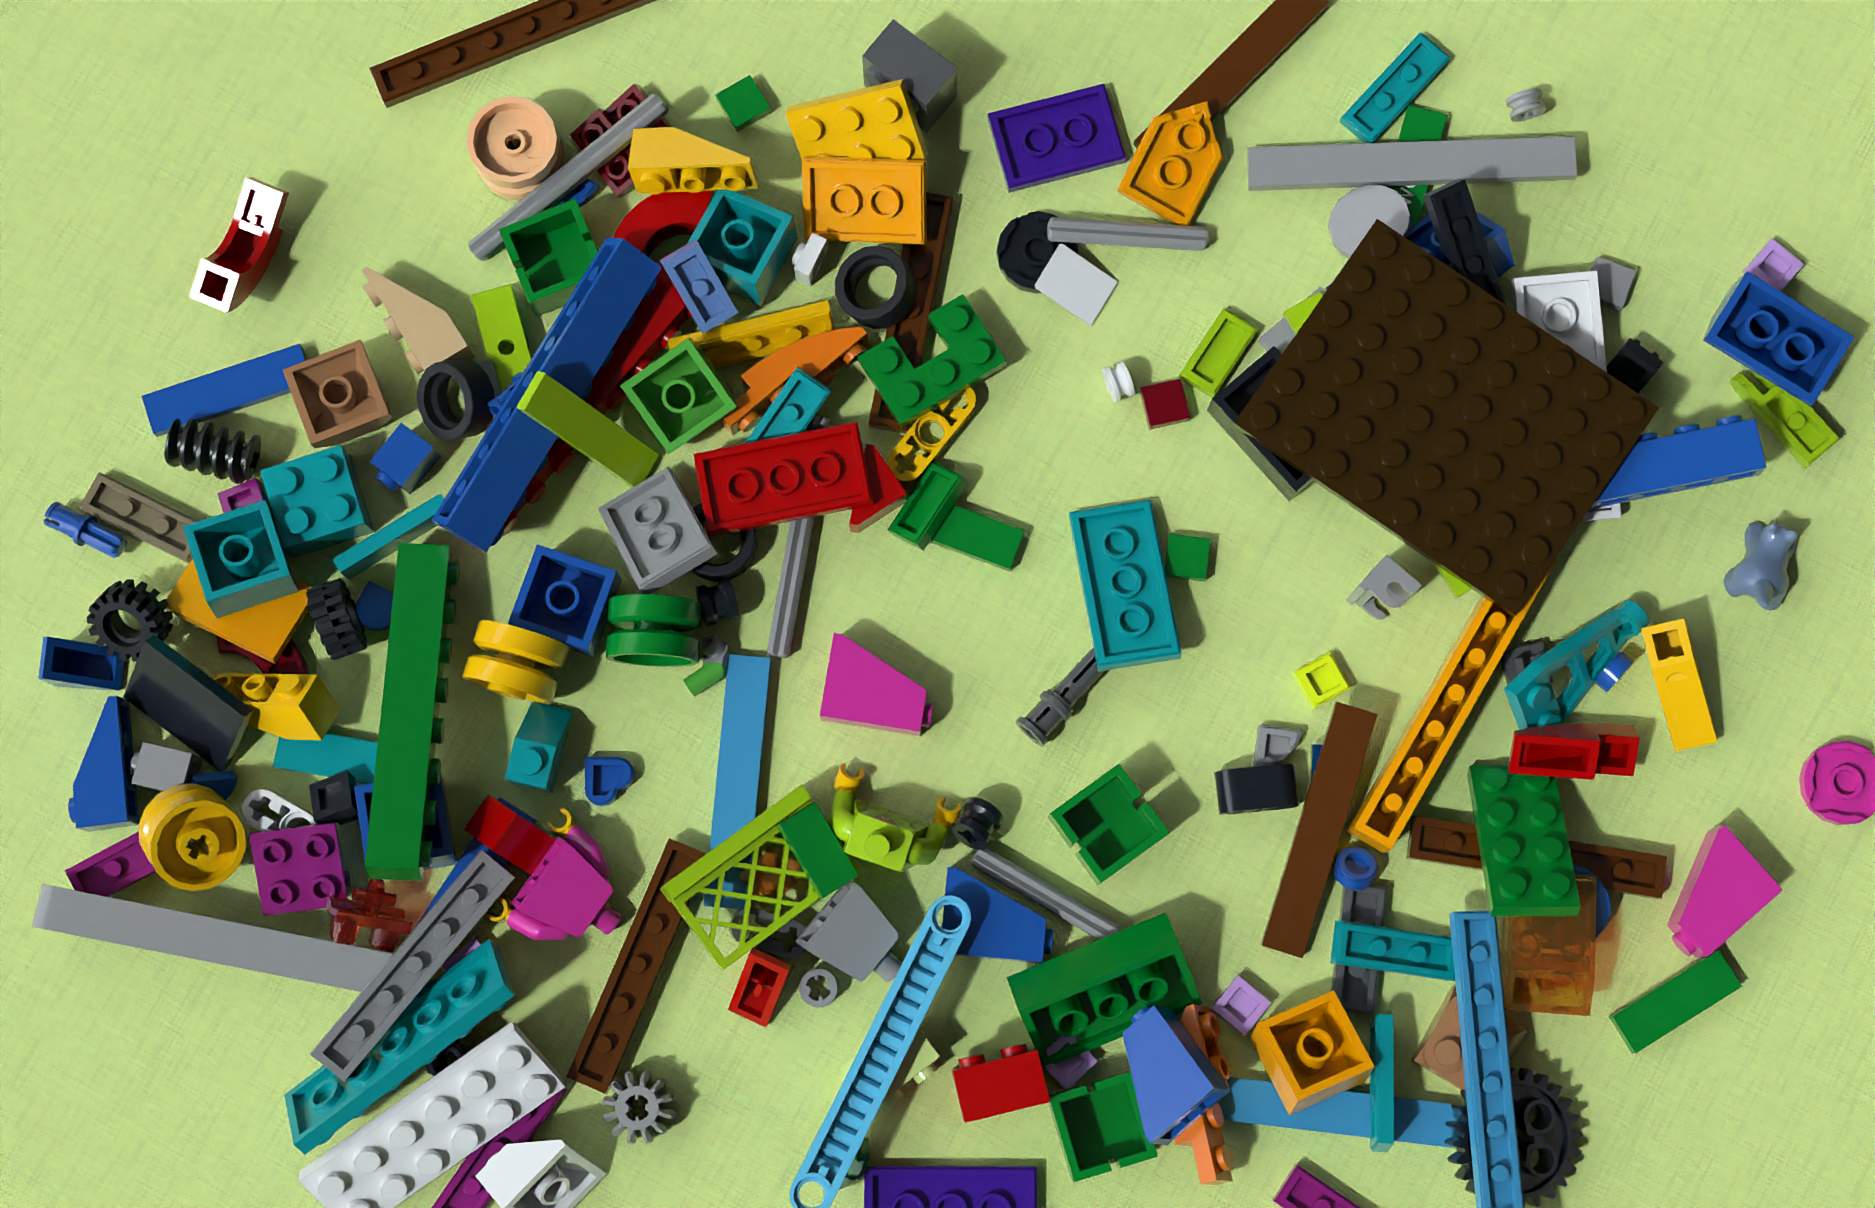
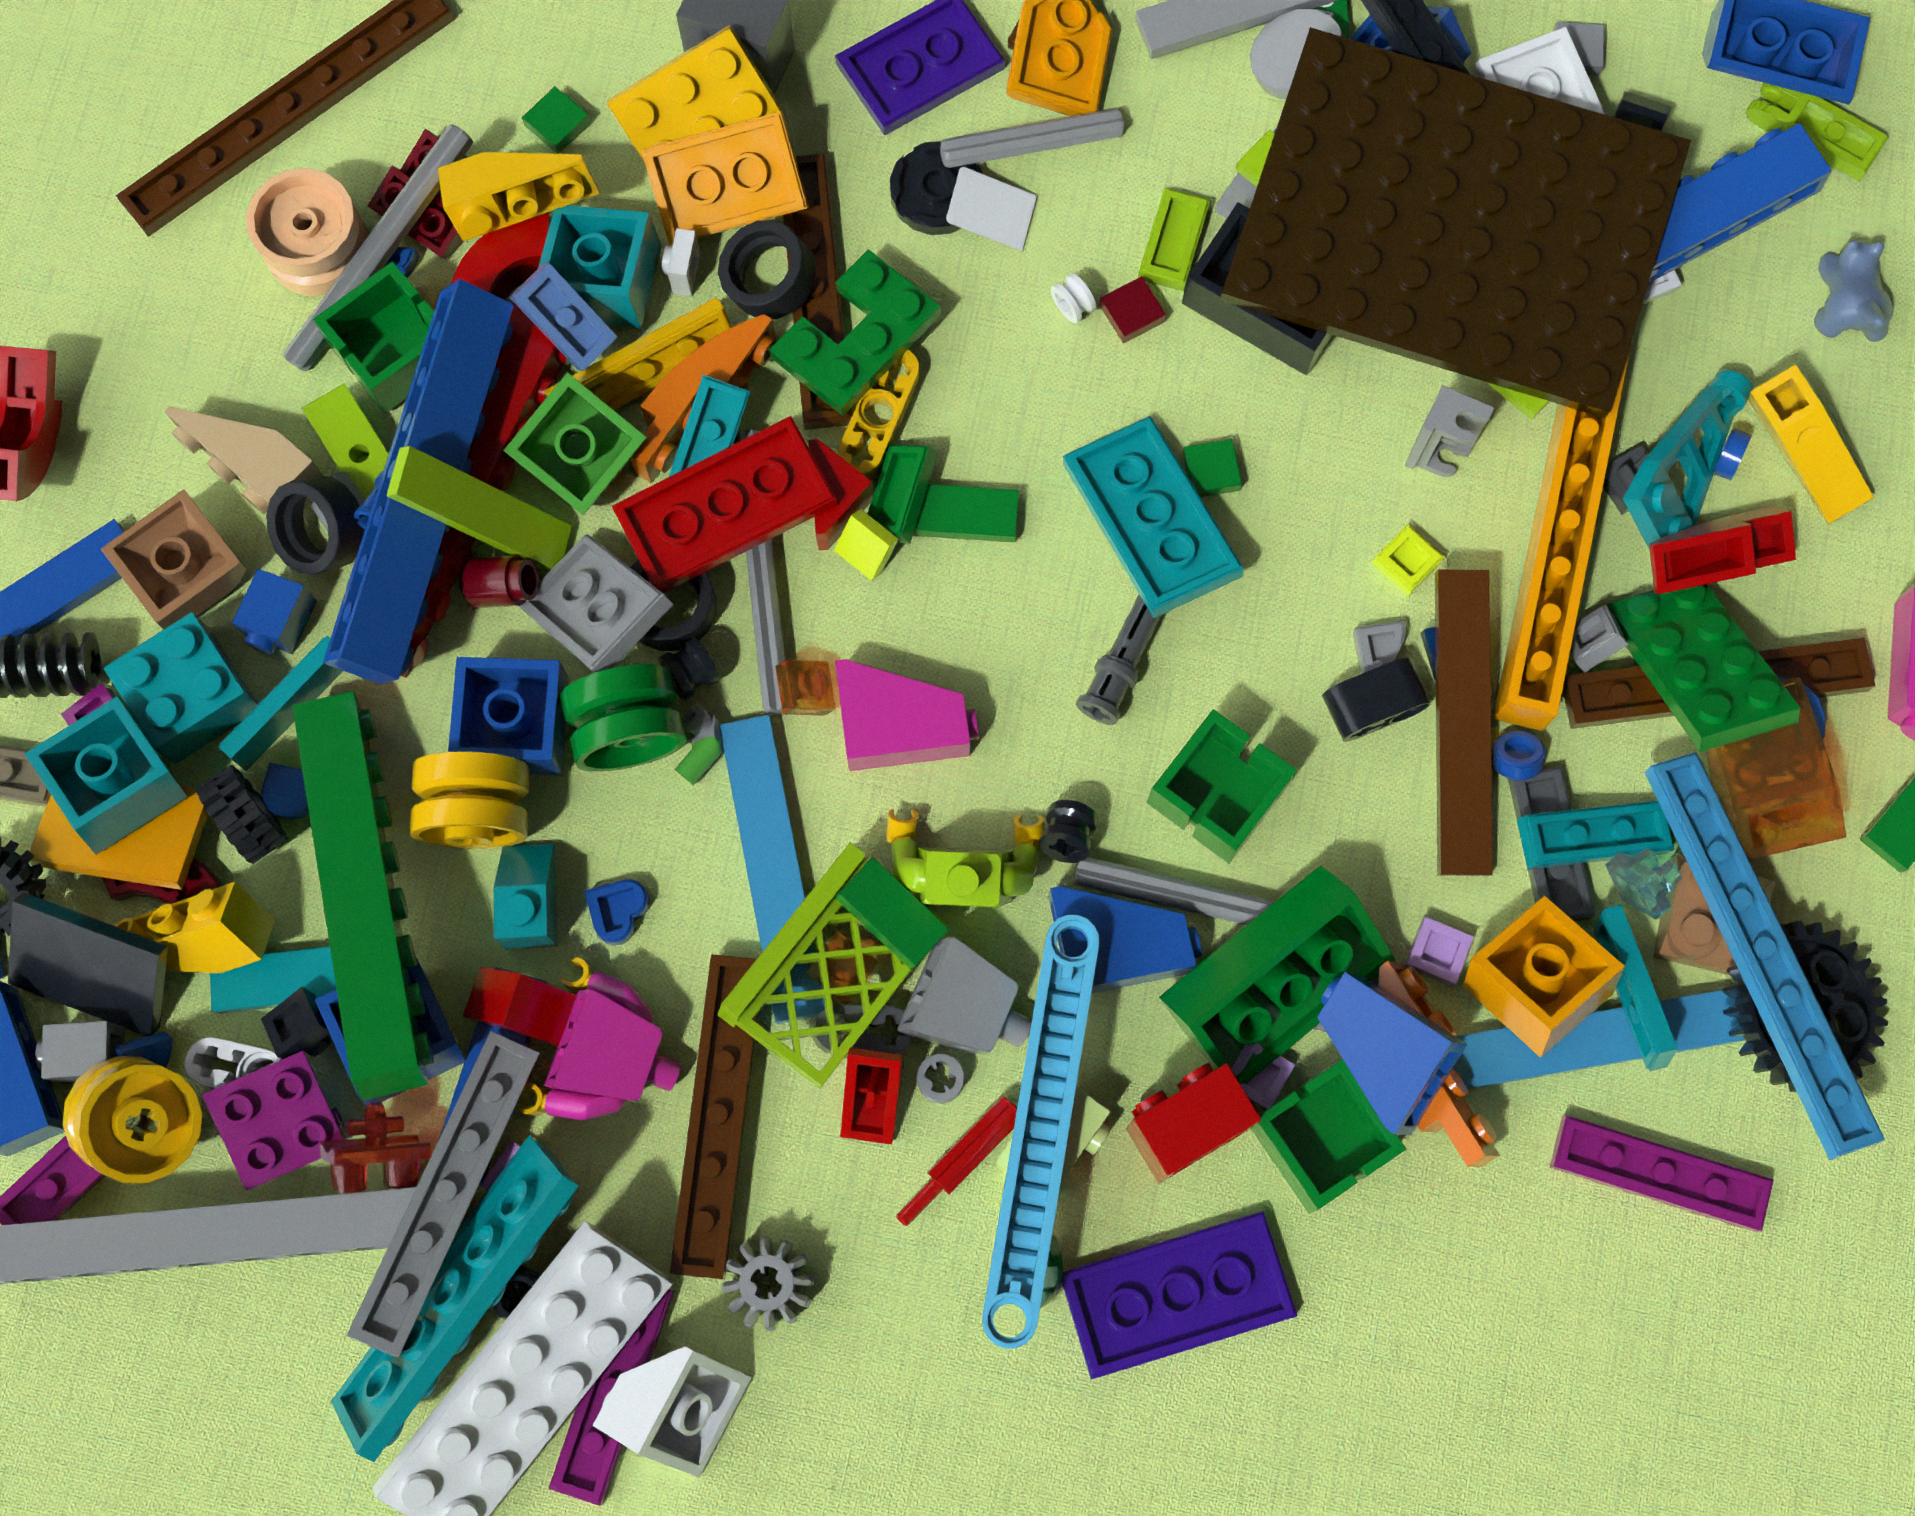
camera: 15 degrees left, 5 degrees down
(588, 487) = (499, 581): none -> dark red brick
(805, 644) = (805, 687): none -> clear orange plate
(817, 1054) = (963, 1157): none -> red axle
(888, 541) = (866, 544): none -> neon yellow tile
(1418, 1001) = (1643, 881): none -> clear light blue tile
(1448, 792) = (1596, 638): none -> light grey tile

